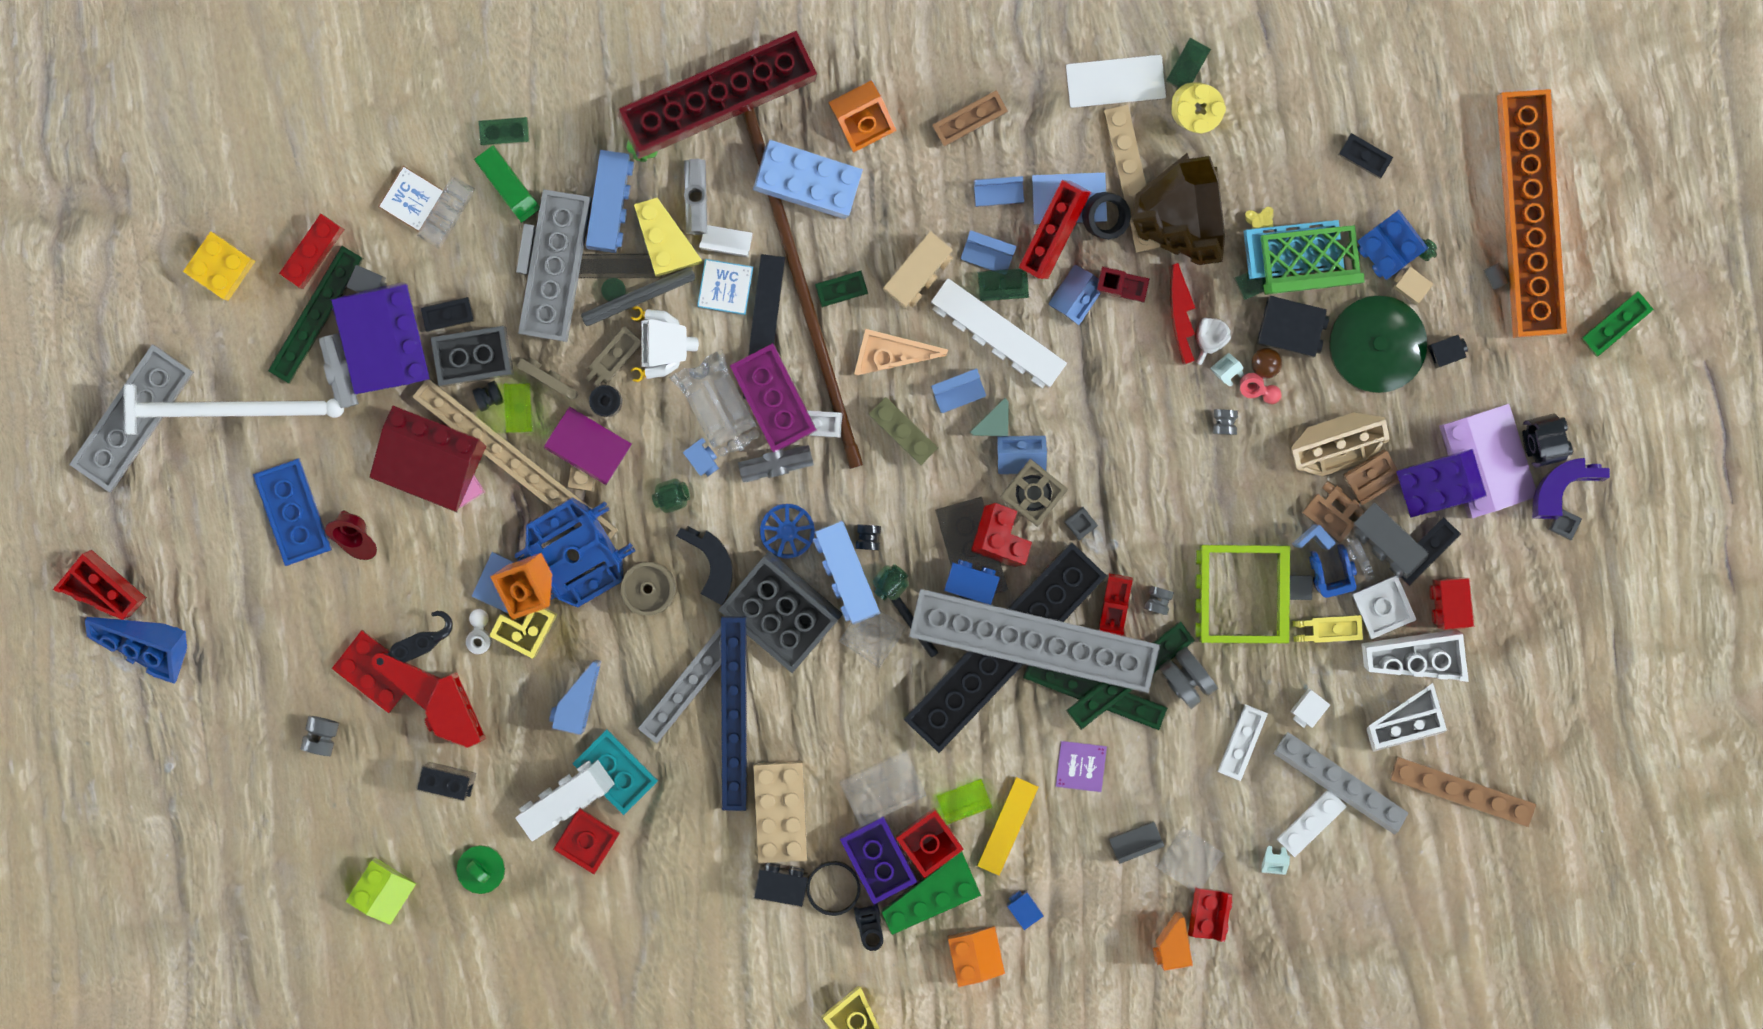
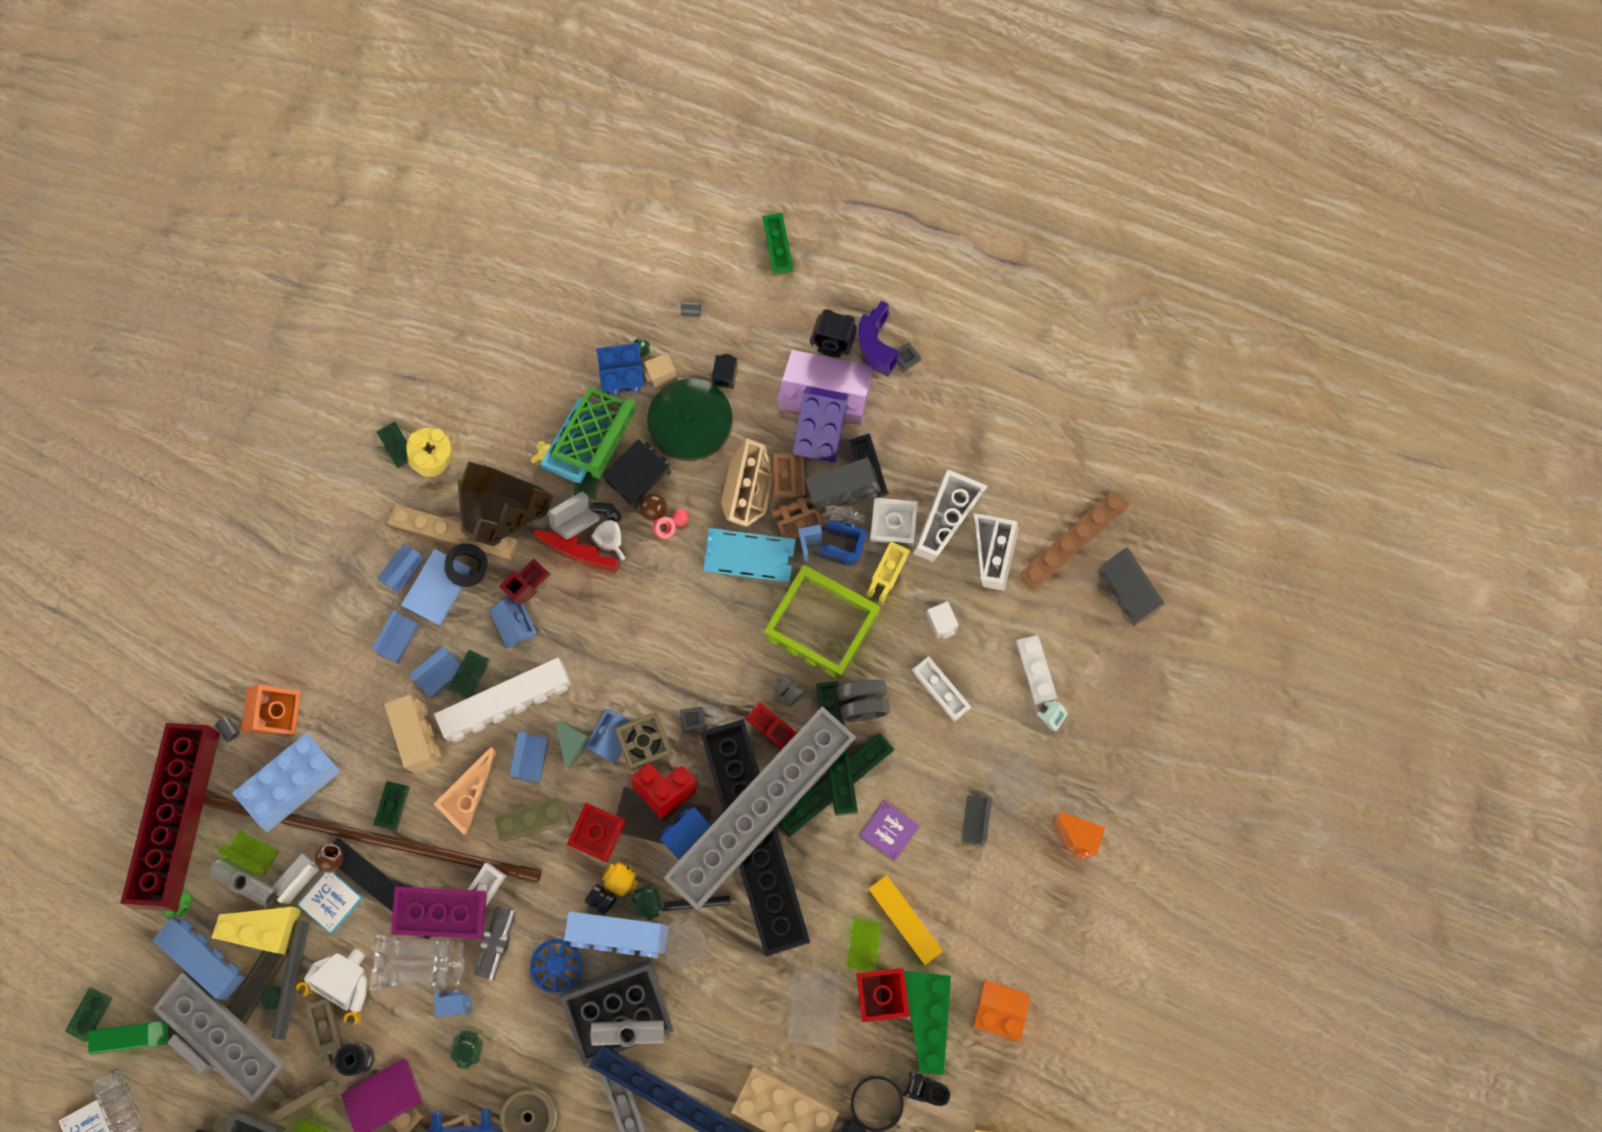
camera: 60 degrees left, 15 degrees down
(720, 563) = (555, 1043): black arch -> none
(725, 183) = (250, 853): none -> clear neon green panel
(762, 265) = (329, 858): none -> reddish brown piece
(775, 649) = (611, 1032): none -> light grey piece
(822, 85) = (227, 729): none -> dark grey hinge
(878, 859) = (873, 1048): dark purple brick -> none
(896, 544) = (619, 879): none -> yellow head
(925, 496) = (596, 832): none -> red tile
(970, 118) = (327, 628): medium nougat plate -> none
(1024, 909) = (982, 945): blue brick -> none
(1054, 229) = (449, 608): red brick -> none
(1068, 150) = (401, 568): none -> medium blue panel
(1116, 81) = (373, 505): white sticker -> none
(1210, 914) = (1069, 791): red bracket -> none
(1212, 292) = (572, 516): none -> light grey panel
(1225, 422) = (679, 562): dark grey wheel -> none
(1227, 368) = (639, 540): light aqua tile -> none
(1239, 320) = (608, 510): none -> black arm
(1269, 485) = (749, 555): none -> medium azure piece
(1300, 587) = (843, 575): dark grey tile -> none
(1341, 783) = (1016, 629): light grey plate -> none
(1365, 156) = (544, 353): black plate -> none
(1441, 871) = (1130, 587): none -> dark grey slope
(1452, 603) = (919, 466): red brick -> none
(1531, 213) = (660, 258): orange brick -> none

